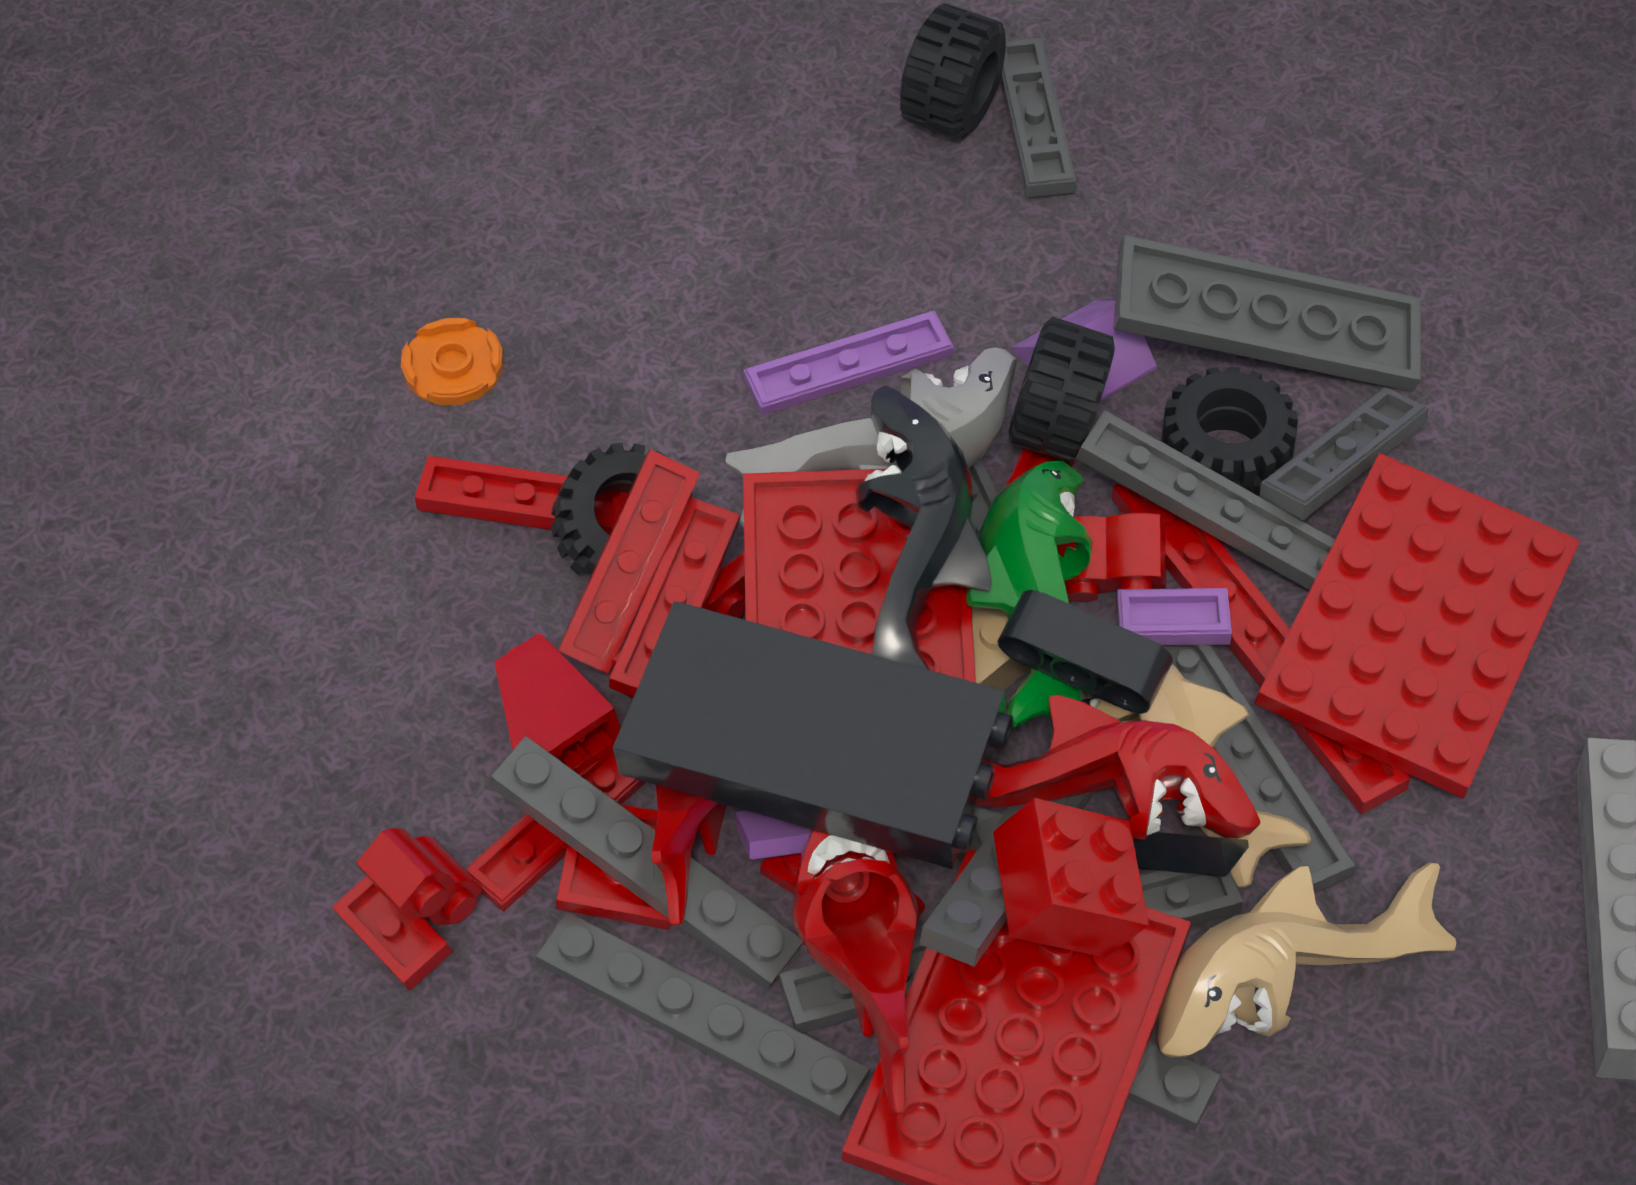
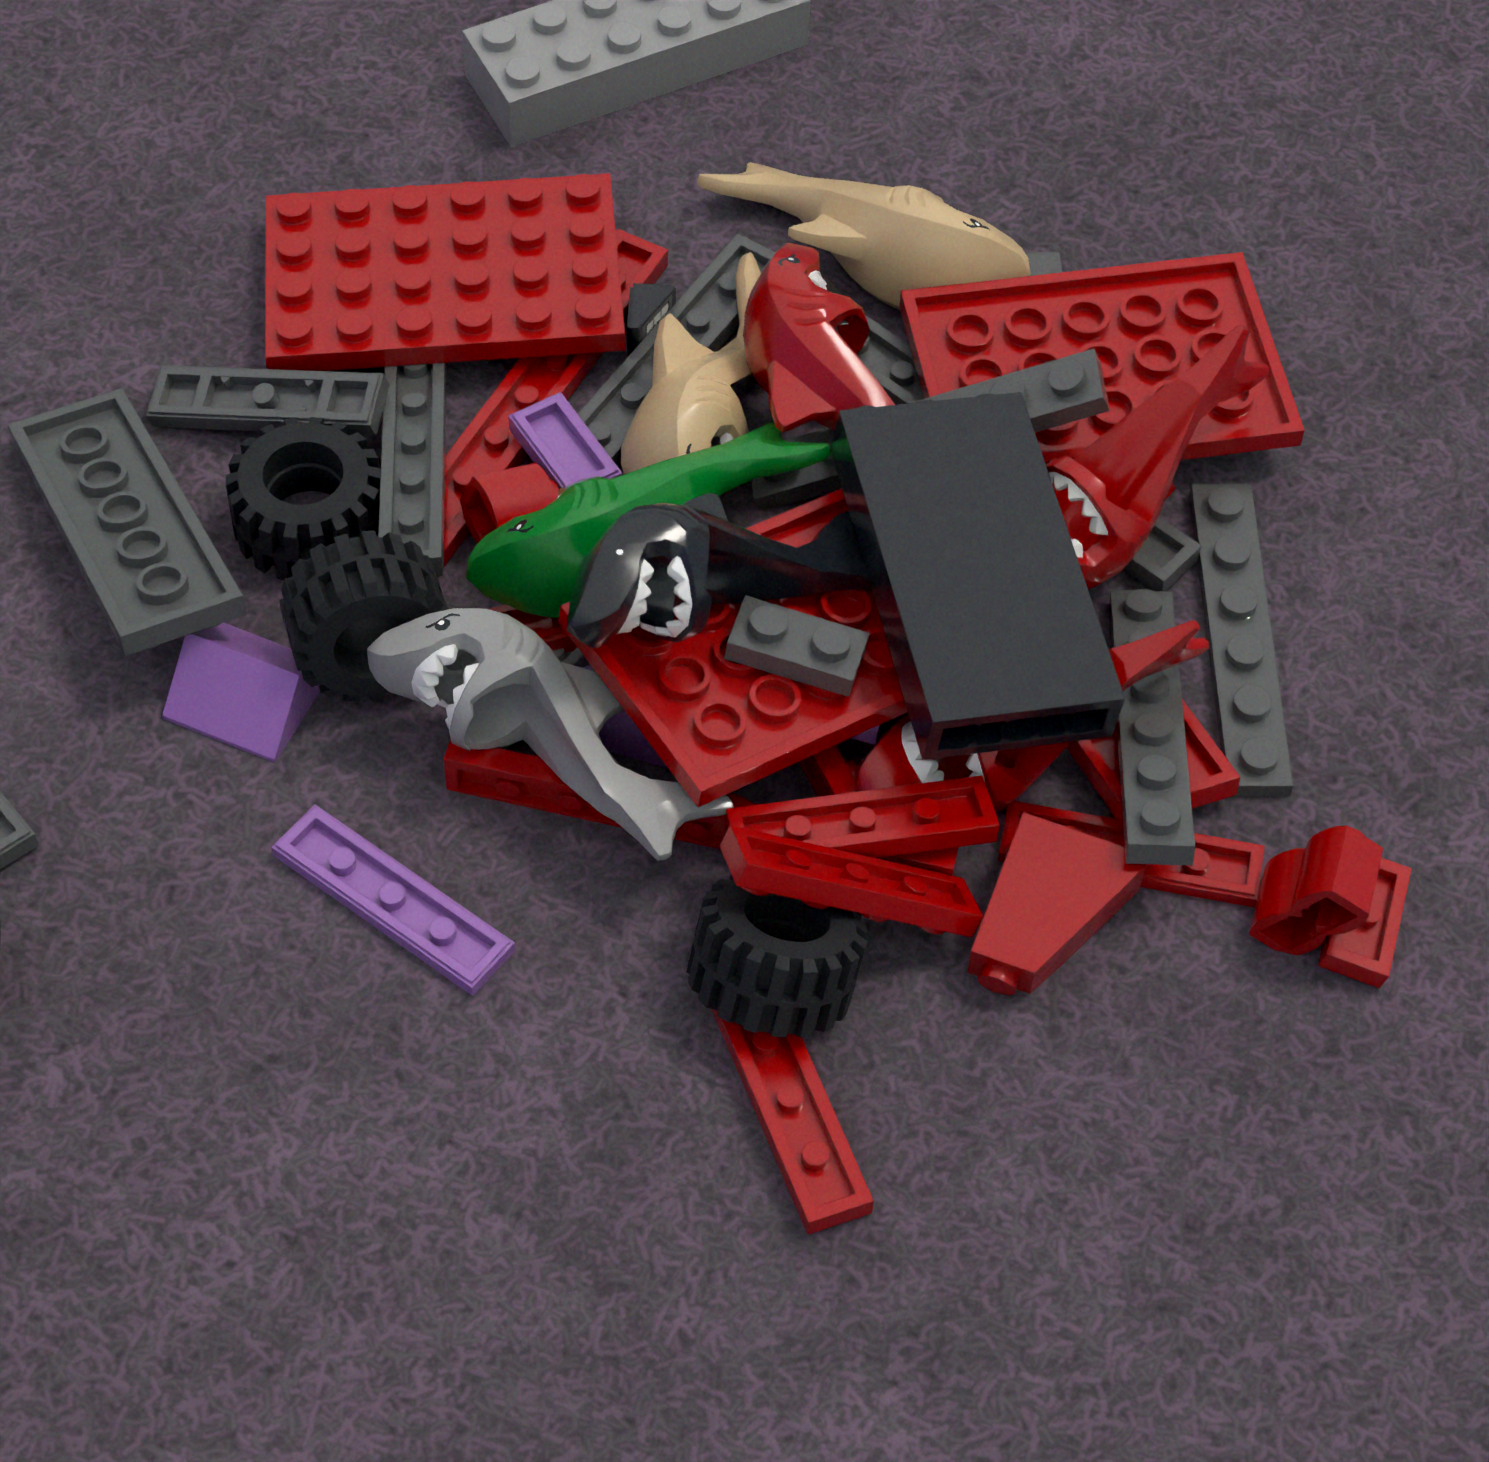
camera: 125 degrees left, 0 degrees up
(452, 376) = (647, 1329): orange tile -> none
(832, 595) = (796, 645): none -> dark grey plate
(1070, 878) = (960, 334): red brick -> none
(1085, 651) = (722, 410): black beam -> none
(1296, 743) = (646, 308): none -> black slope

